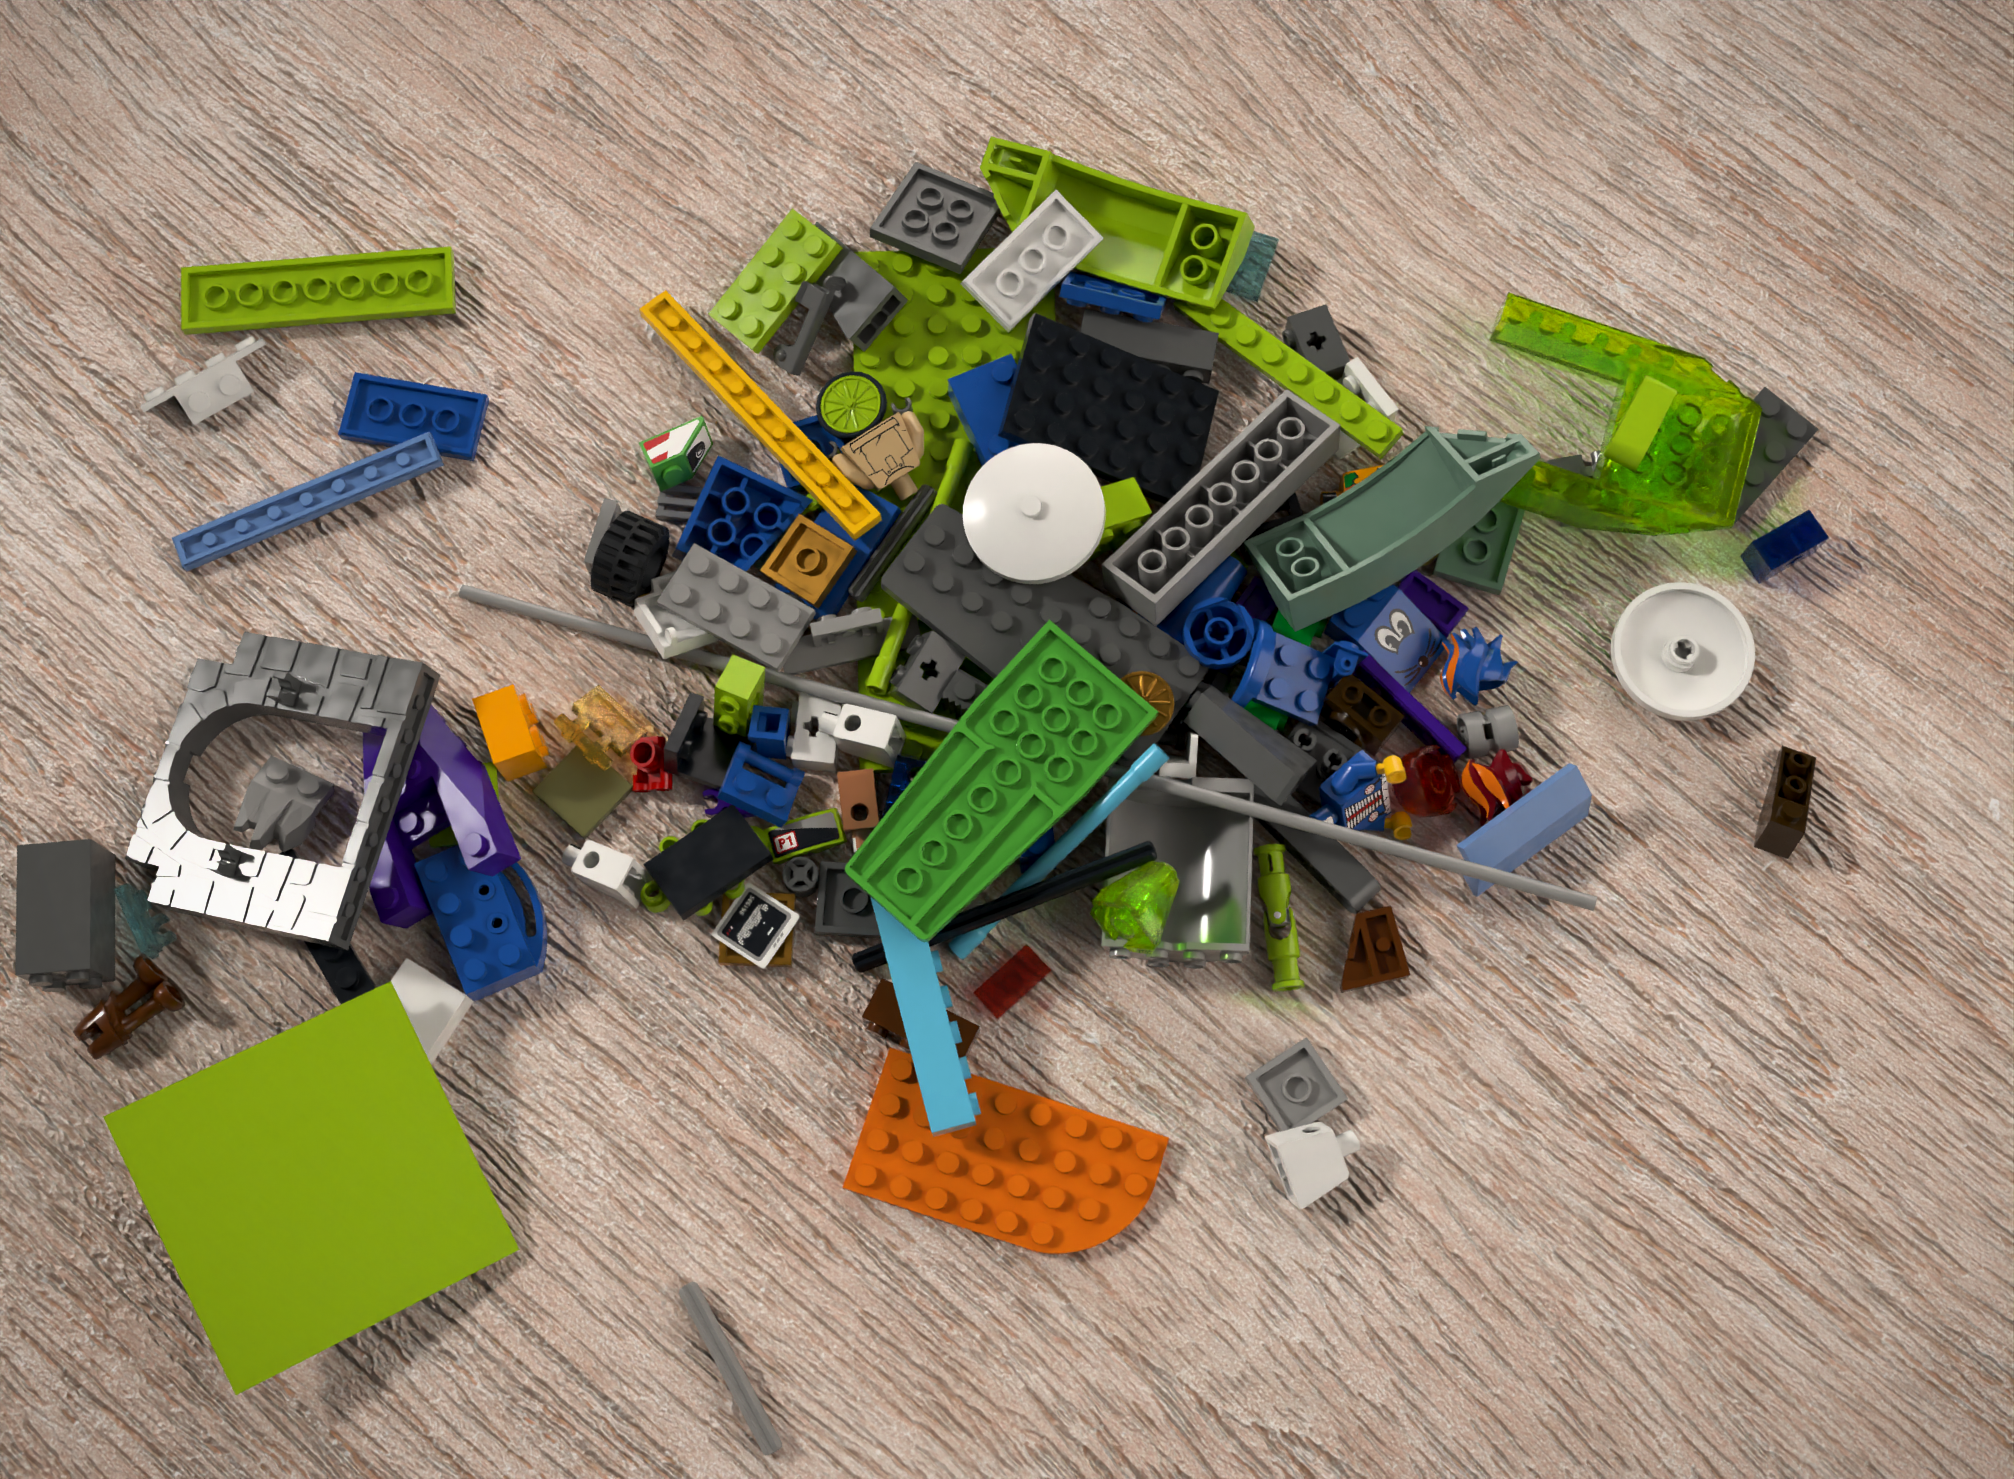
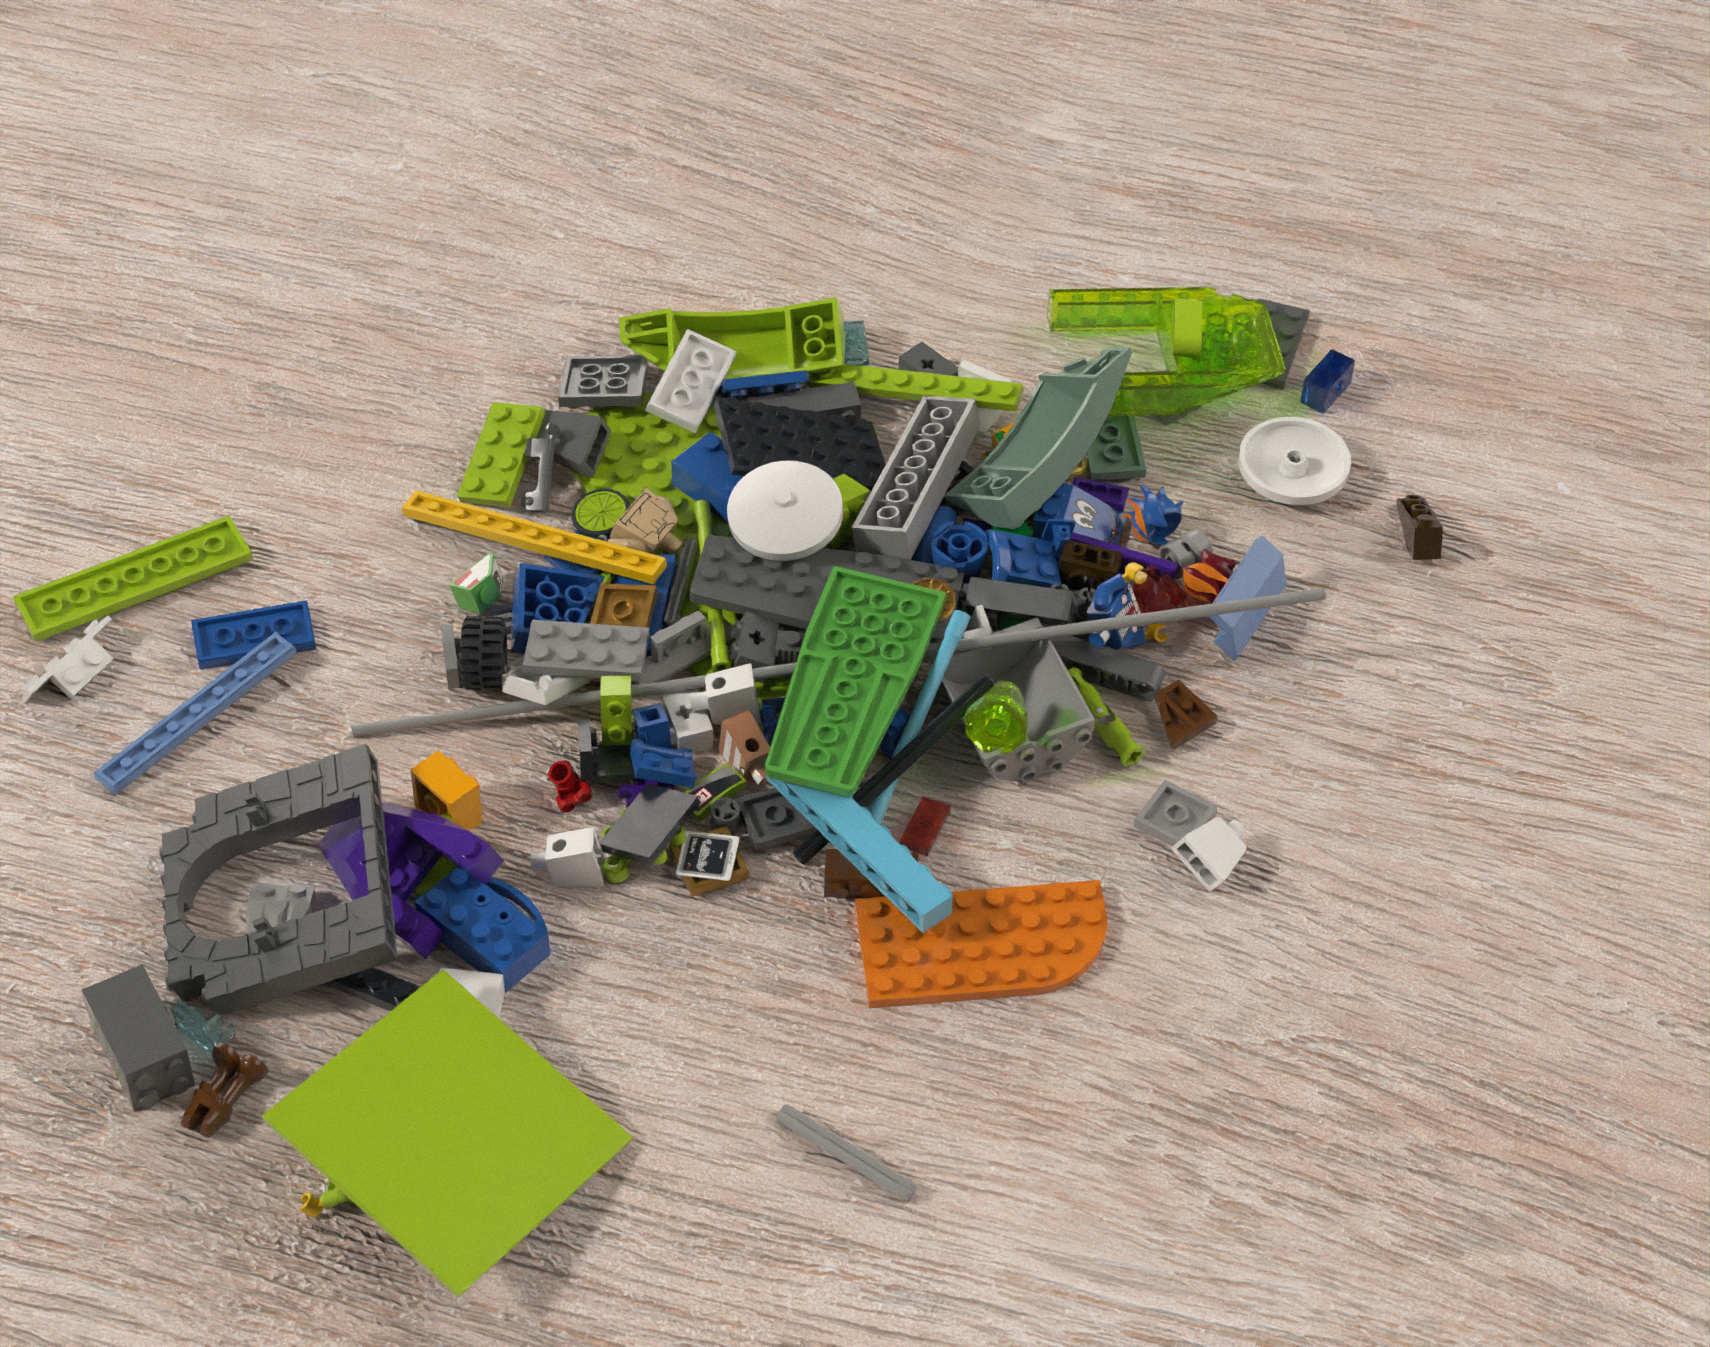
camera: 25 degrees left, 25 degrees down
(582, 792) = (520, 823): olive tile -> none
(607, 720) = (514, 774): clear yellow plate -> none

